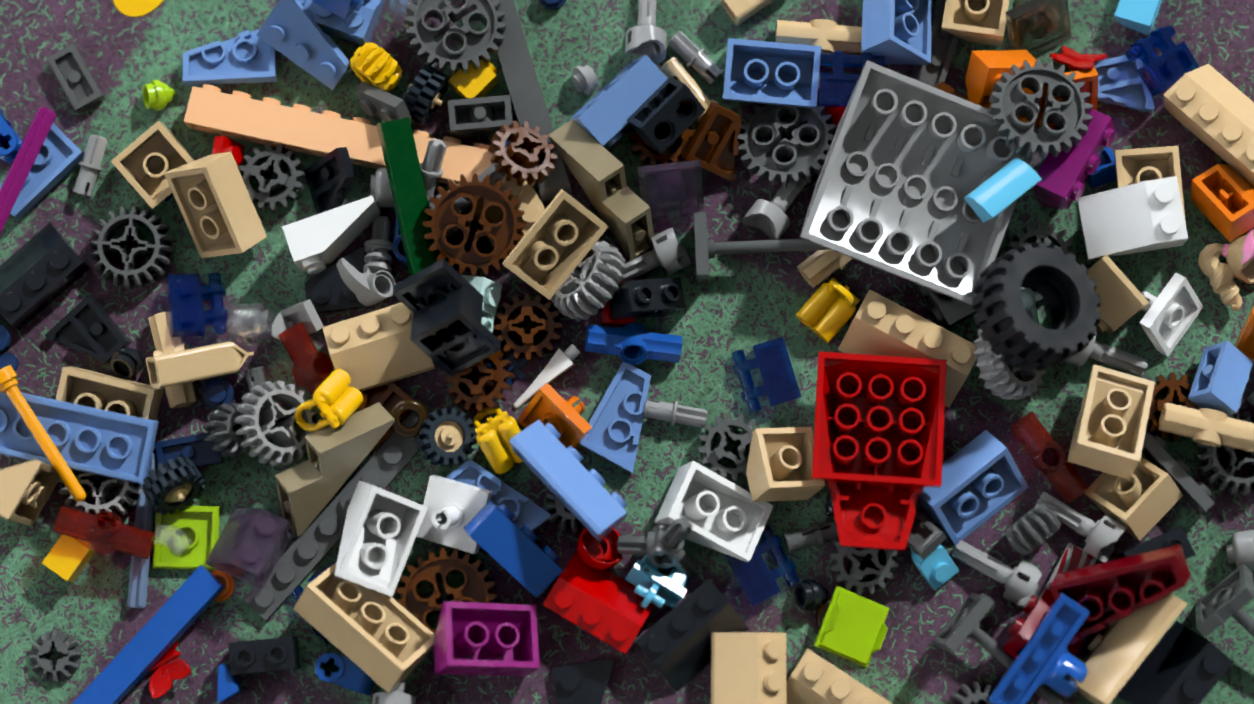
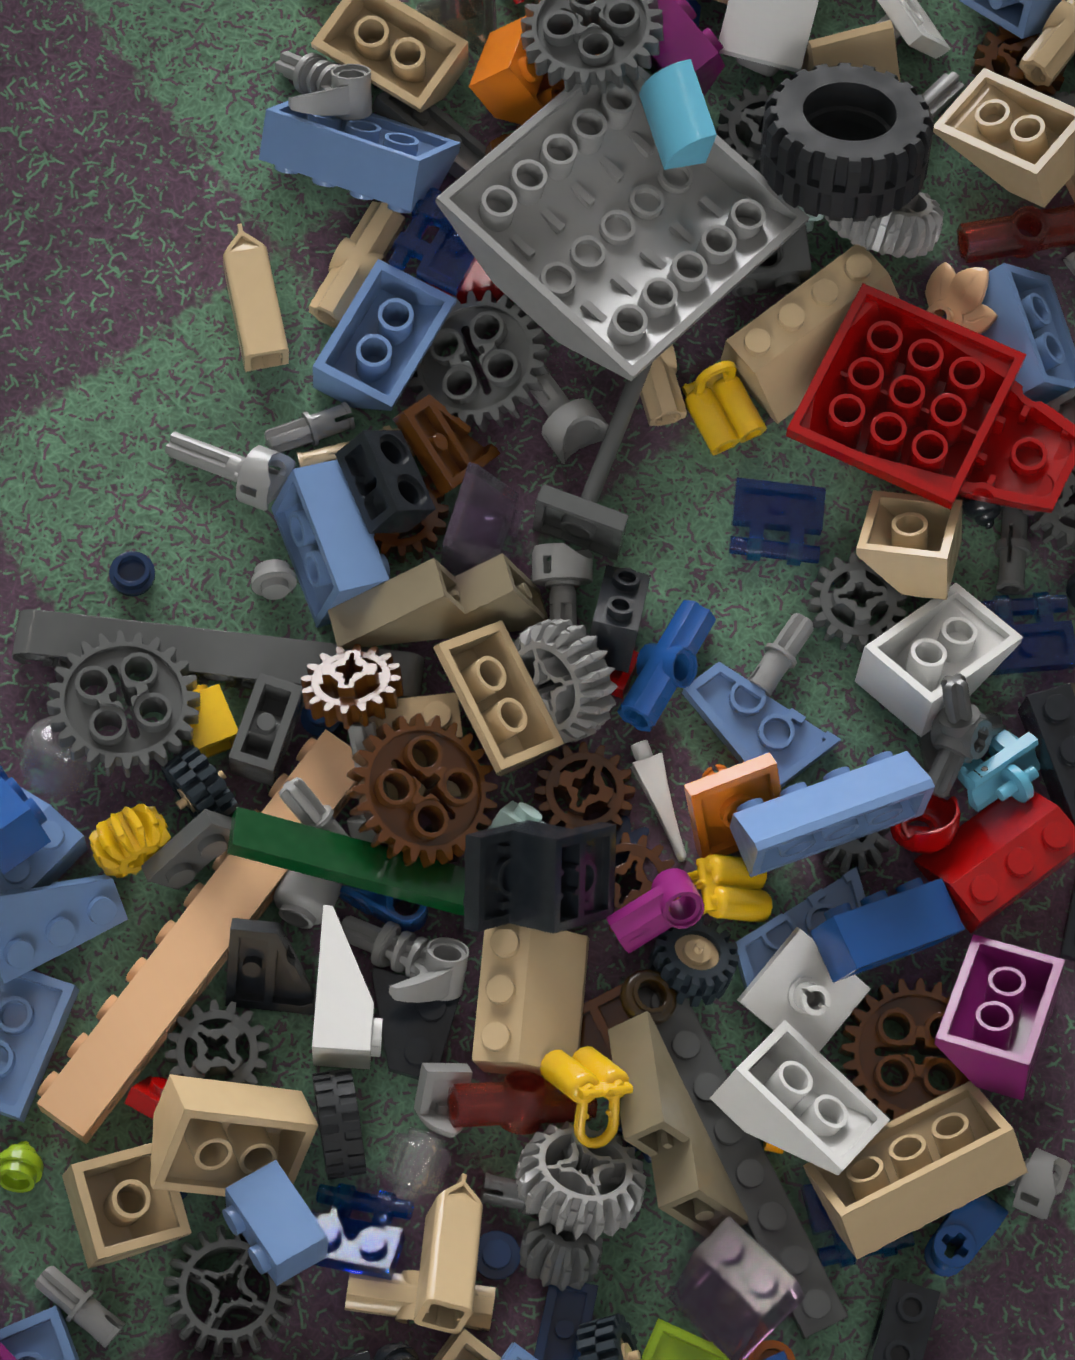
camera: 80 degrees left, 10 degrees down
(172, 253) = (275, 1223): none -> medium blue brick
(251, 265) = (339, 1123): none -> black tyre
(466, 405) = (657, 911): none -> magenta piece
(974, 430) = (960, 297): none -> light nougat plate

